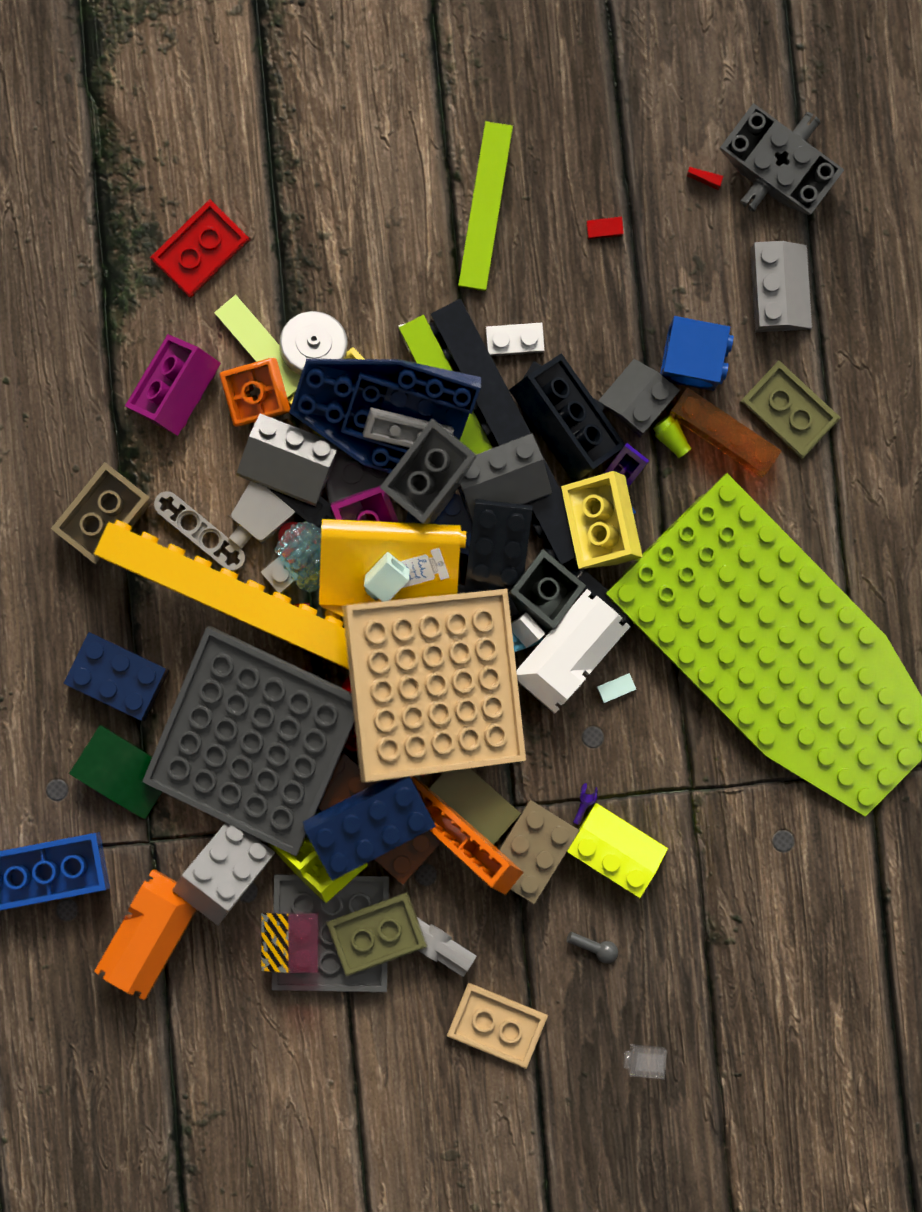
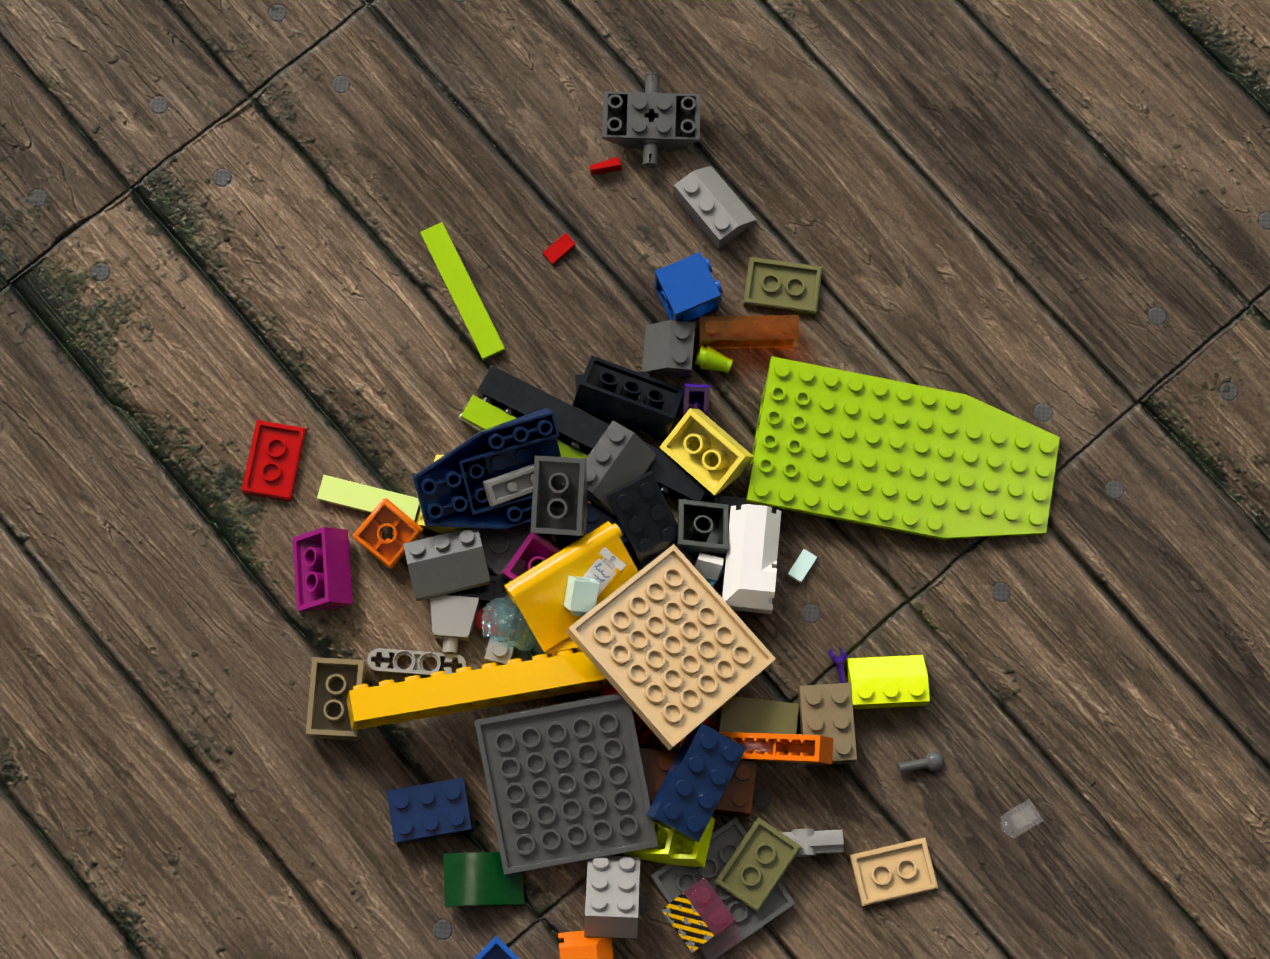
camera: 30 degrees left, 10 degrees down
(312, 337) = (399, 465): wheel -> none
(515, 339) = (551, 369): white plate -> none

